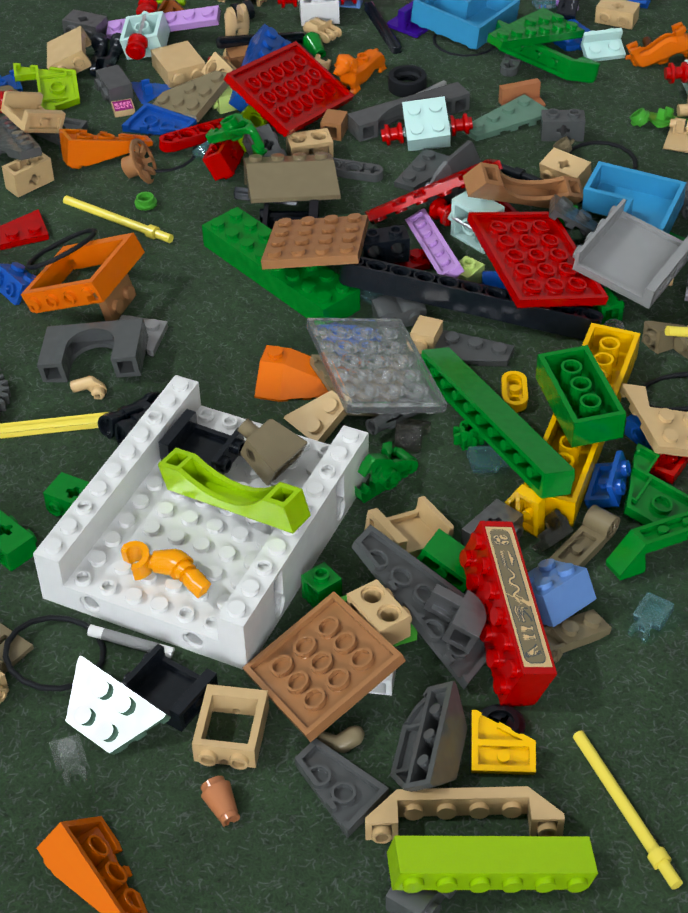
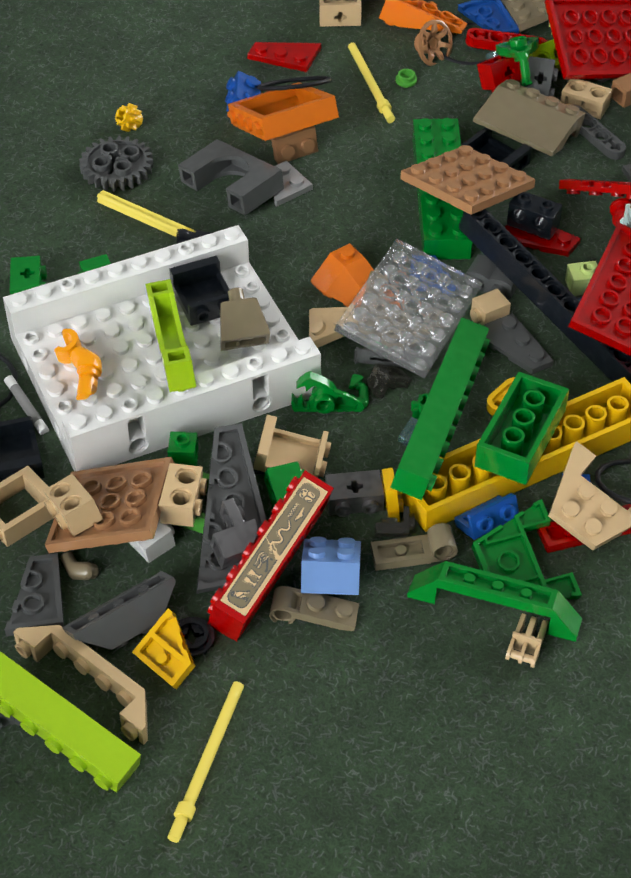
camera: 40 degrees right, 5 degrees up
(91, 384) = (206, 201): tan arm -> none
(297, 684) = (71, 505): none -> tan brick
(434, 244) = (578, 238): lavender plate -> none
(650, 614) = (397, 638): clear light blue plate -> none

